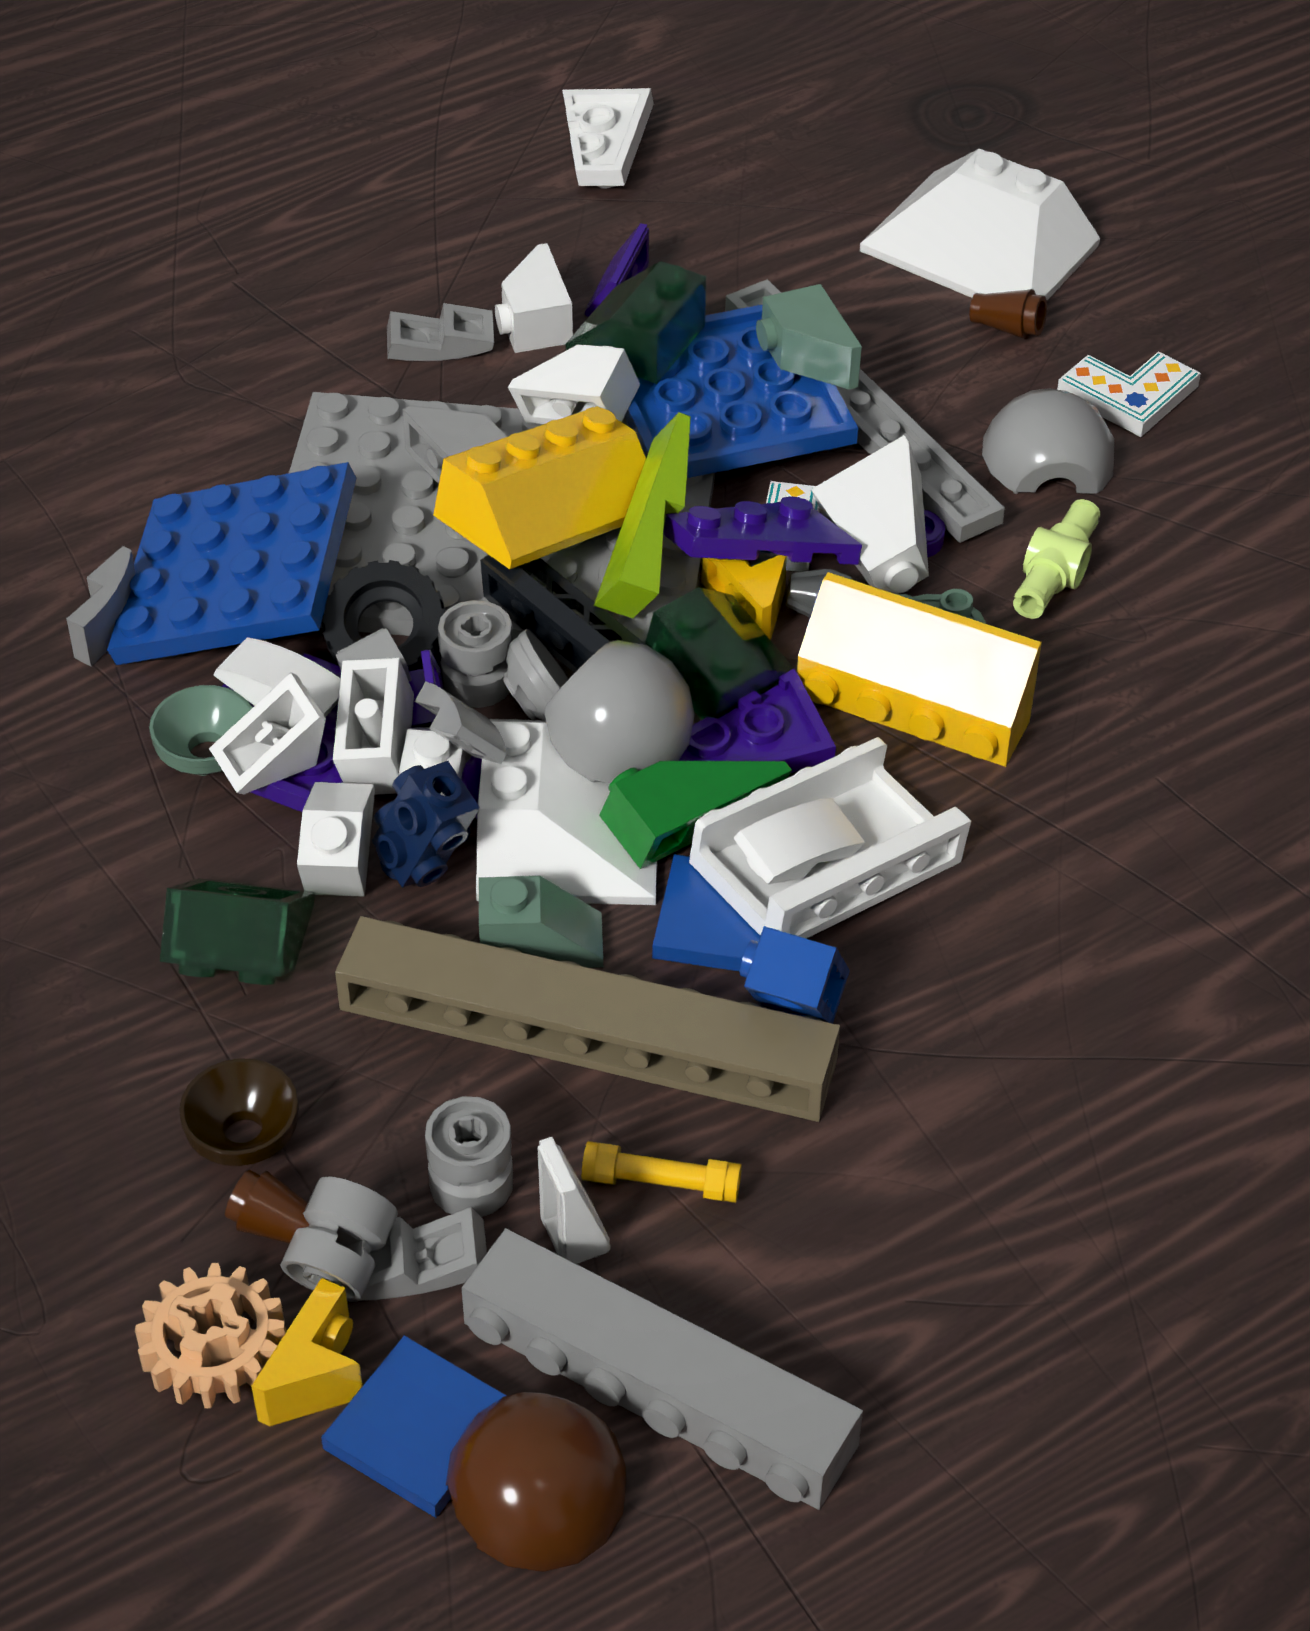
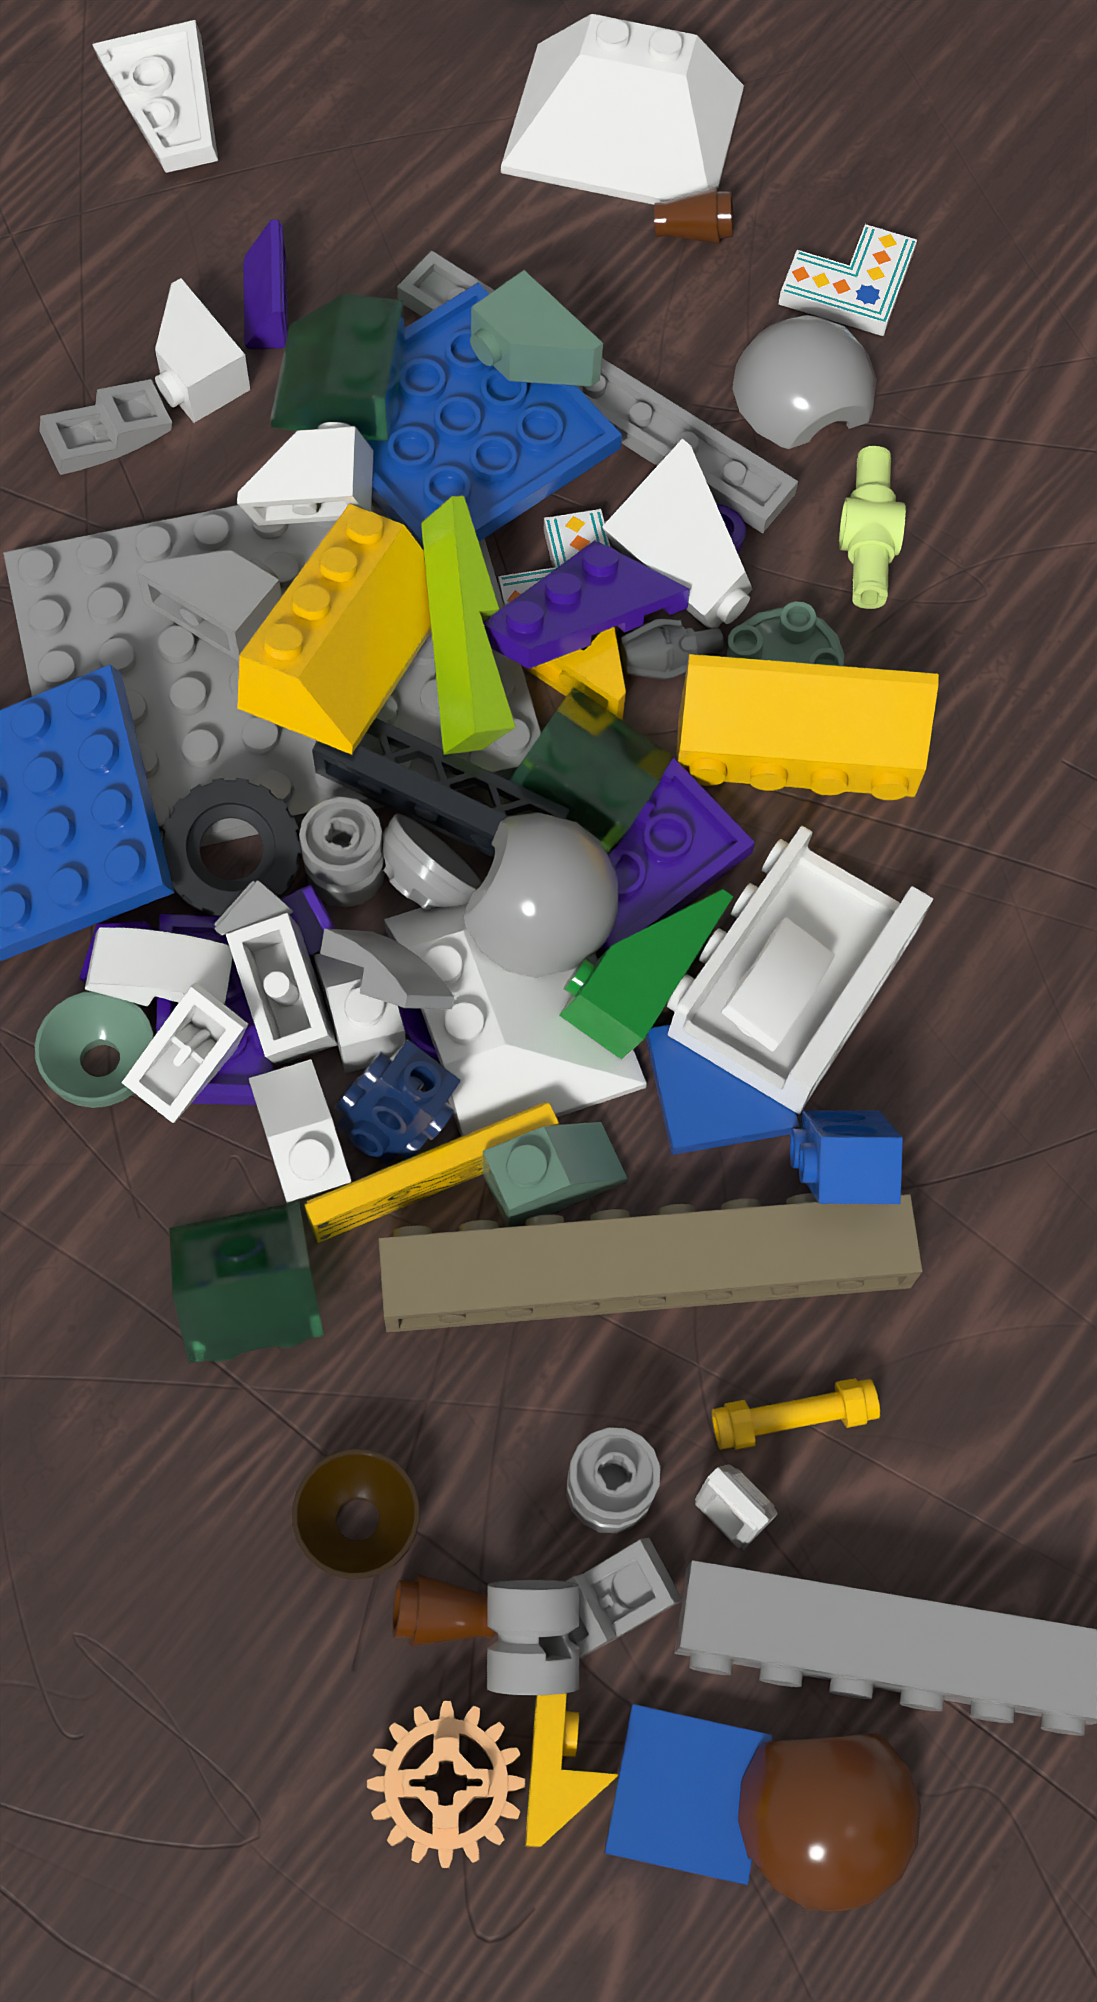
camera: 25 degrees left, 20 degrees up
(406, 896) = (417, 1176): none -> yellow tile

